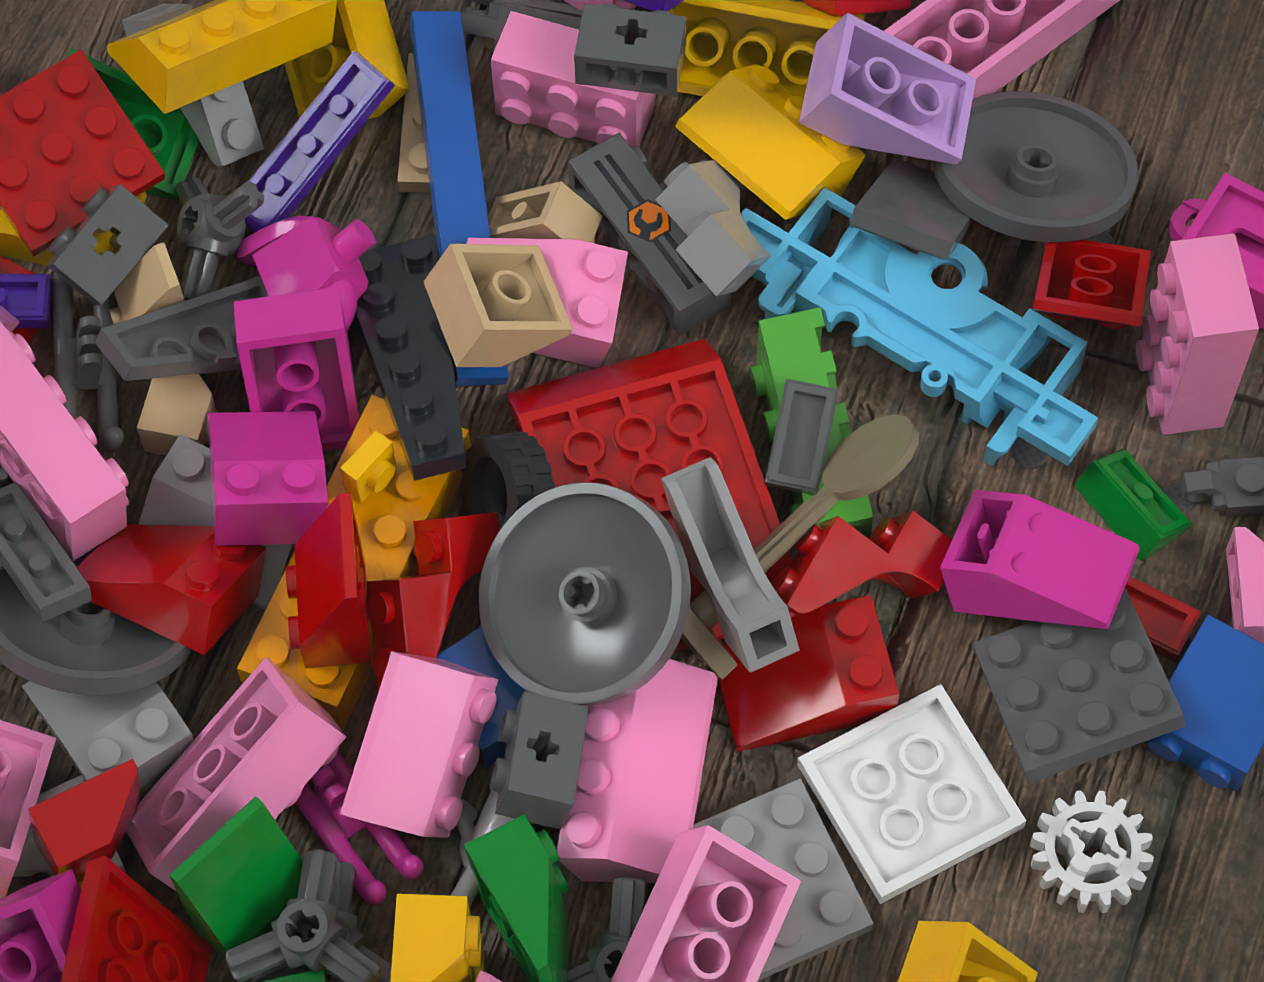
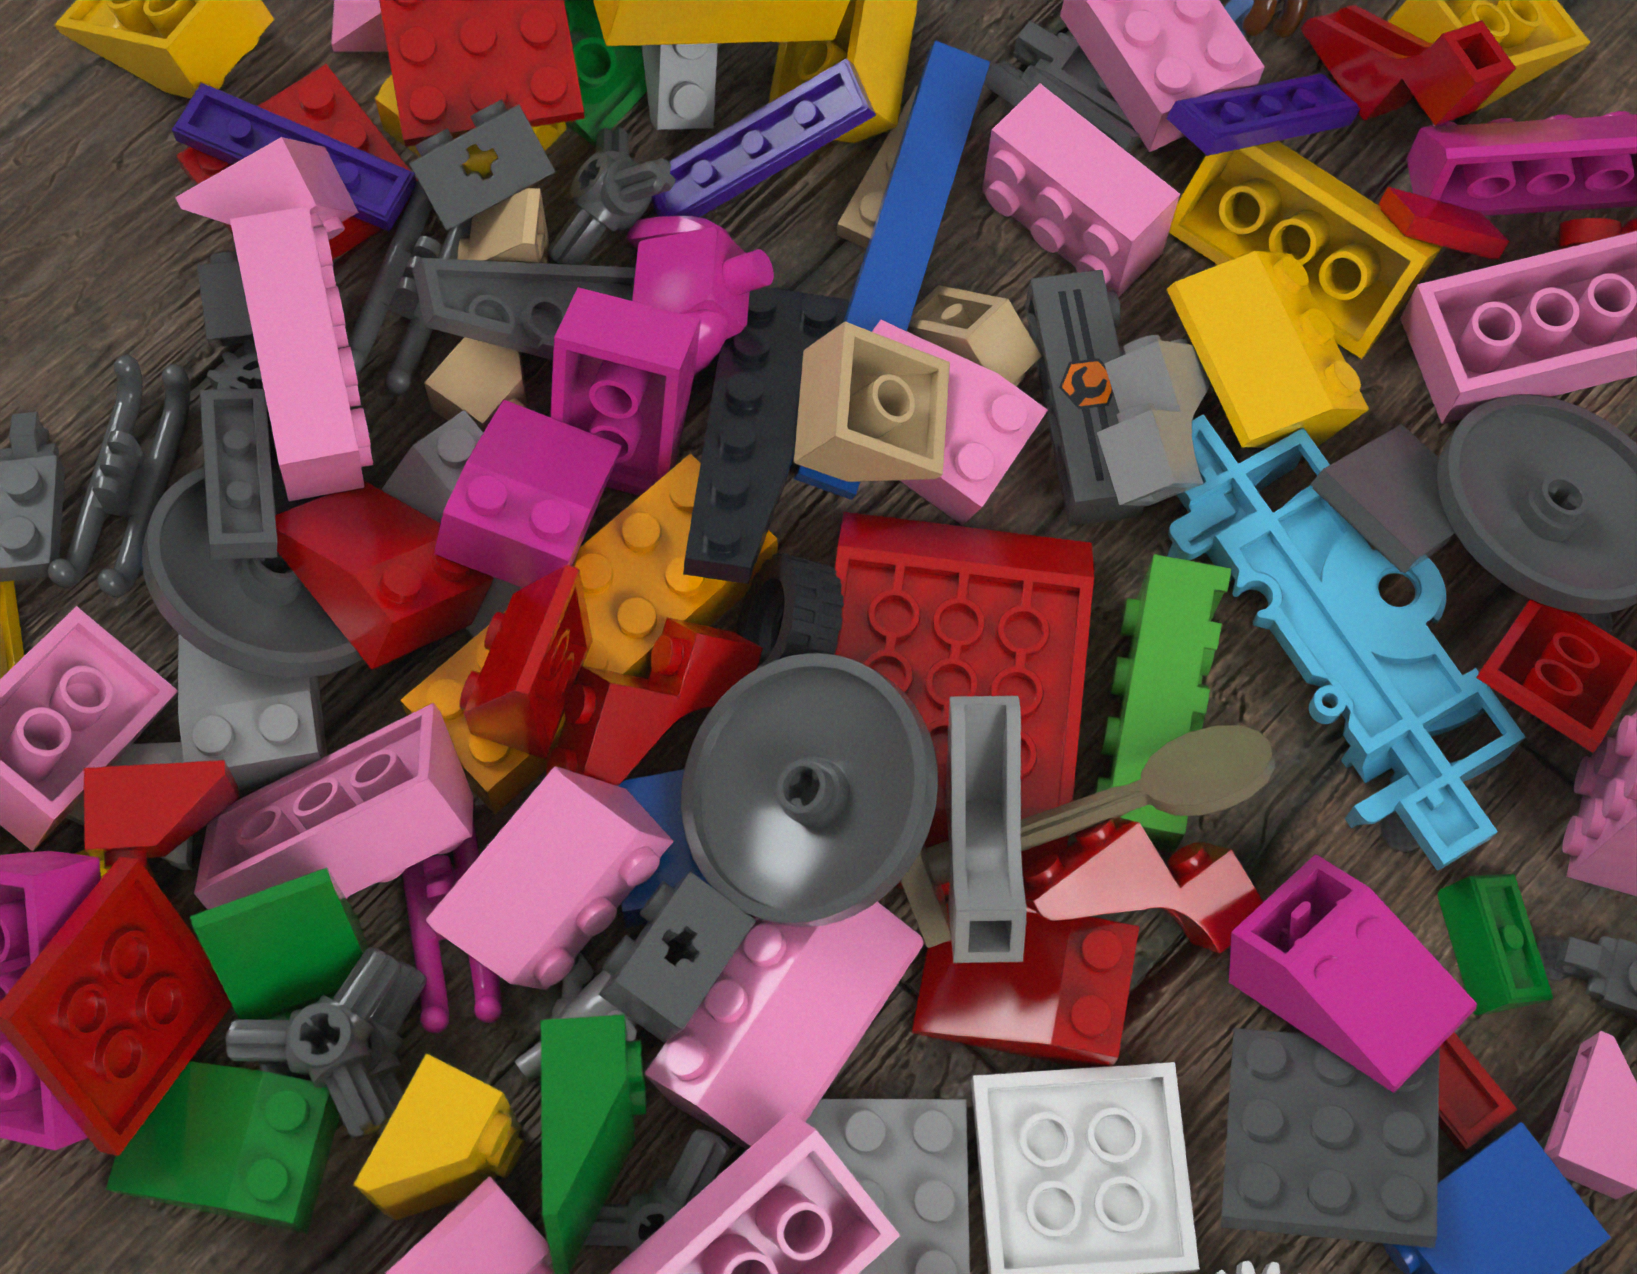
camera: 20 degrees right, 5 degrees up
(369, 467) = (642, 537): yellow plate -> none
(630, 49) = (1150, 181): dark grey brick -> none
(801, 437) = (1142, 709): dark grey tile -> none
(886, 94) = (1421, 352): lavender slope -> none

